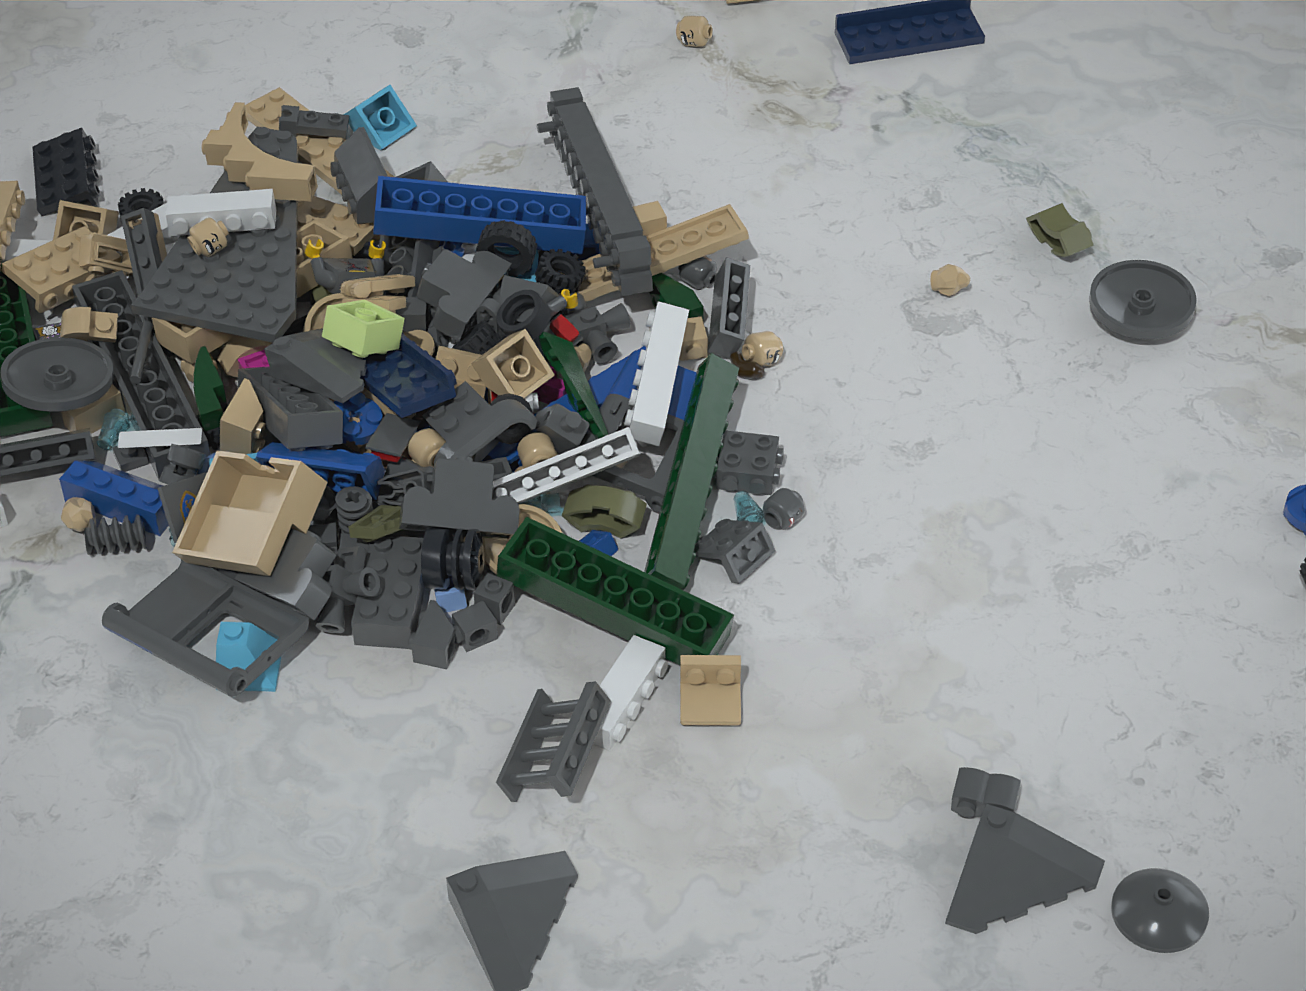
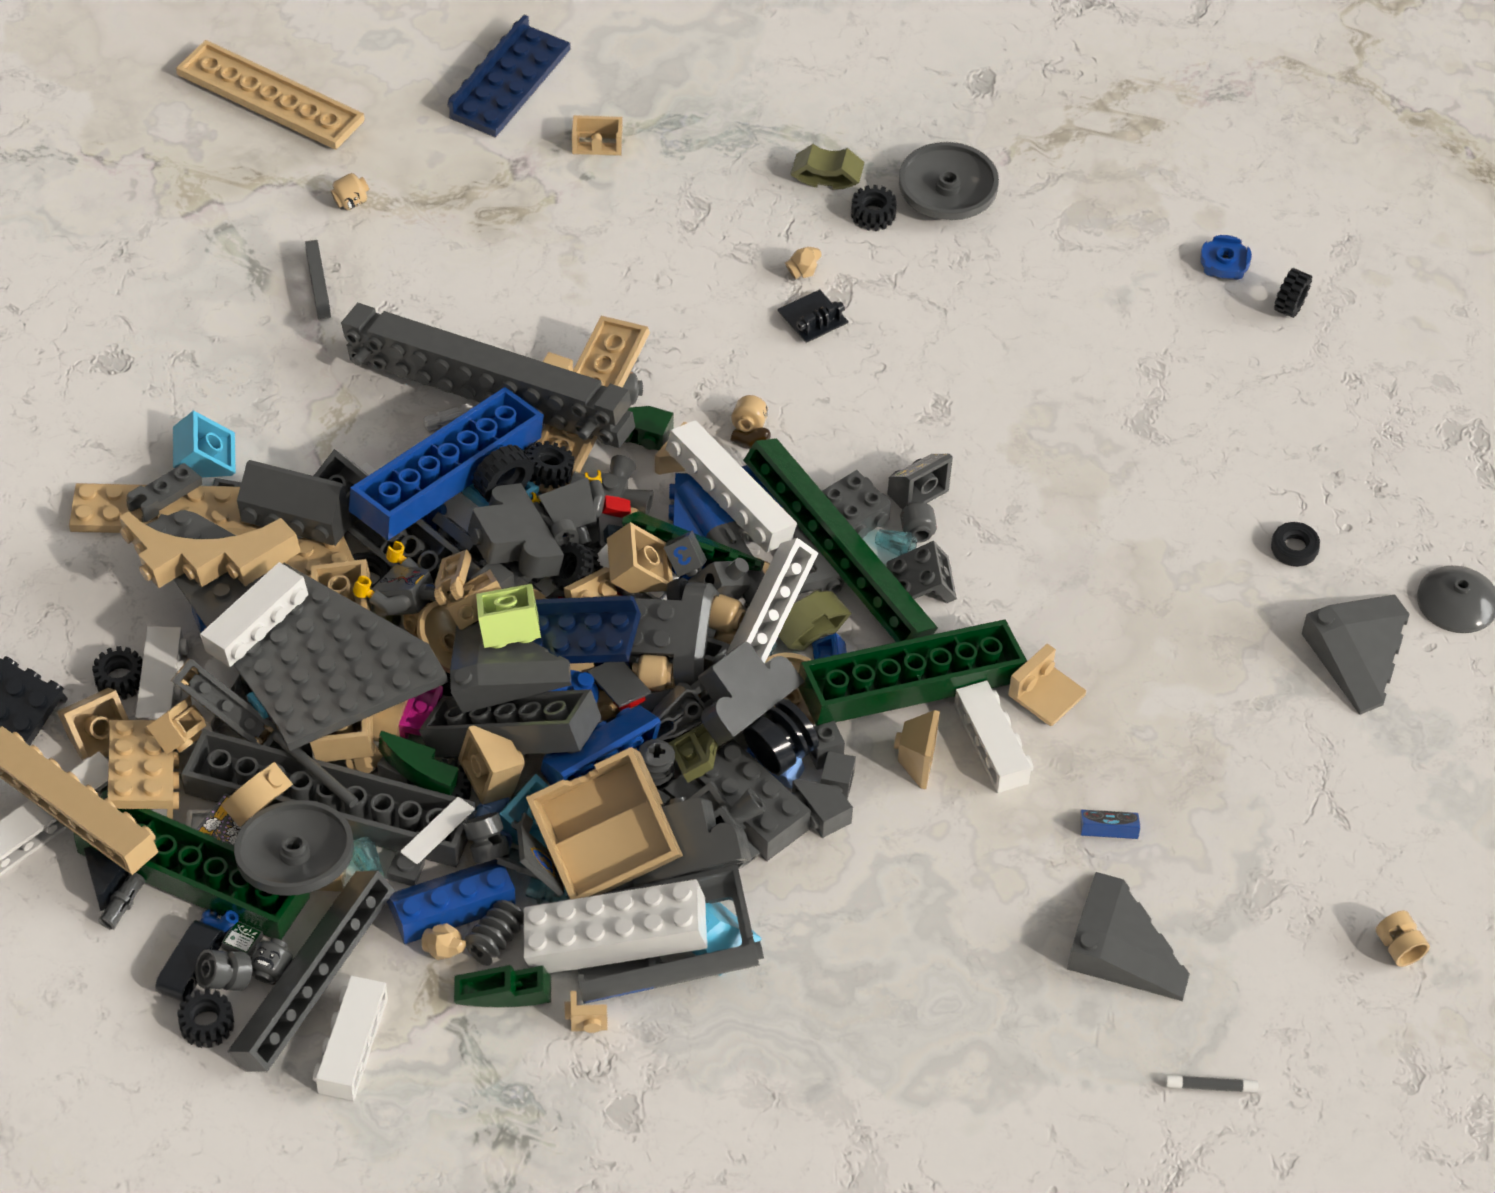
camera: 50 degrees left, 5 degrees up
(73, 575) = (503, 987): none -> dark green slope
(89, 634) = (585, 1017): none -> tan bracket
(175, 590) = (615, 927): none -> white brick
(208, 237) = (279, 641): tan head -> none
(516, 304) = (584, 502): black tyre -> none
(552, 387) = (685, 554): none -> dark grey brick
(554, 656) = (917, 746): none -> tan slope
(568, 756) = (1033, 800): dark grey fence -> none
(599, 67) = (317, 279): none -> dark grey beam
(623, 826) = (1110, 824): none -> blue slope
(729, 308) = (689, 398): dark grey brick -> none
(820, 482) = (921, 481): none -> dark grey slope
(909, 321) = (814, 315): none -> black hinge
(912, 93) = (597, 128): none -> tan window
(977, 788) = (1285, 611): dark grey brick -> none
(1060, 271) = (873, 197): none -> black tyre
(1069, 771) = (1295, 557): none -> black tyre

